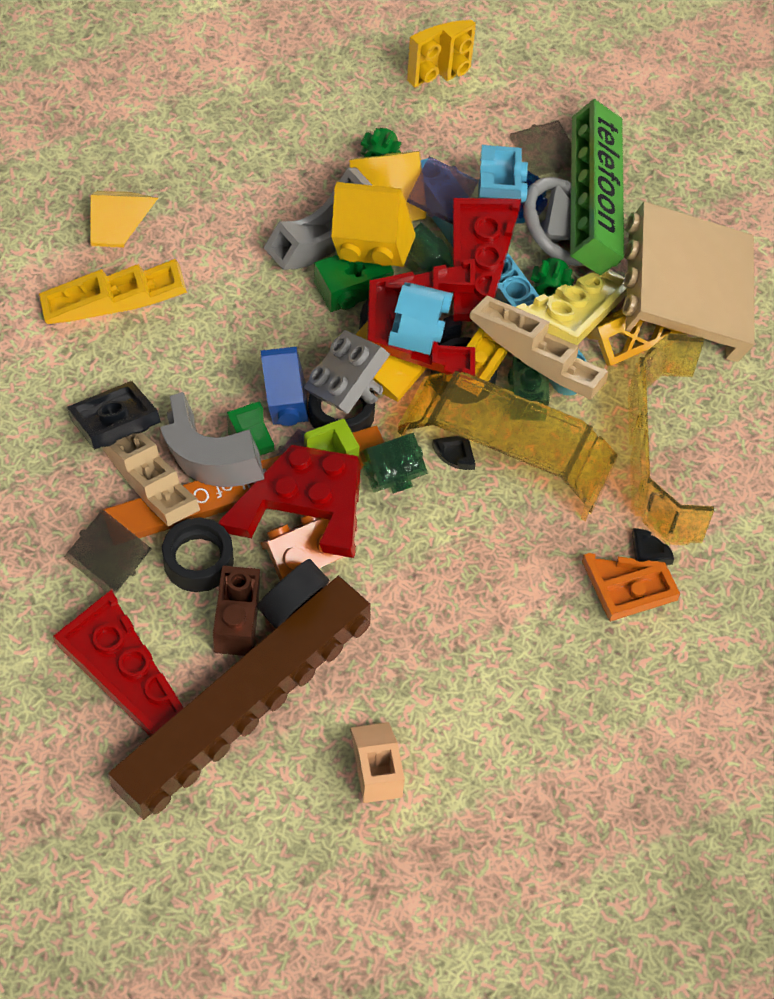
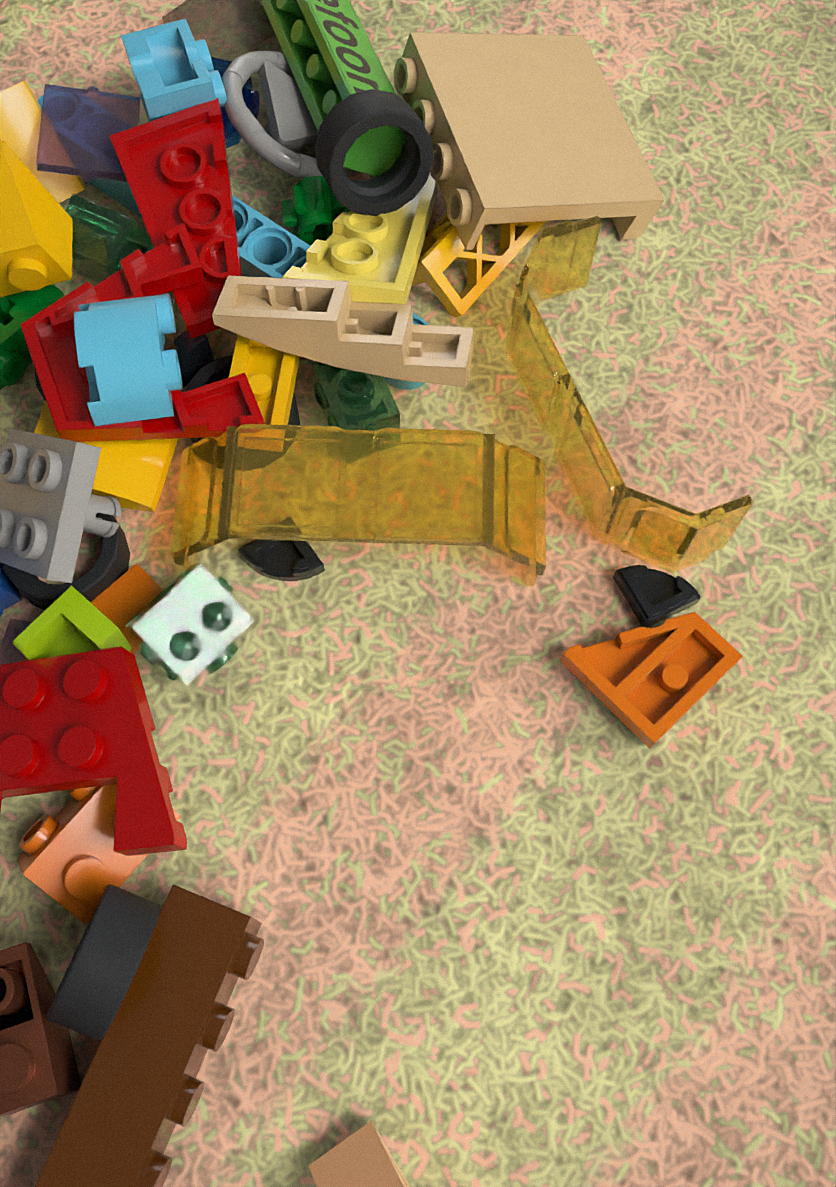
camera: 20 degrees left, 10 degrees up
(599, 281) = (353, 119): none -> black tyre

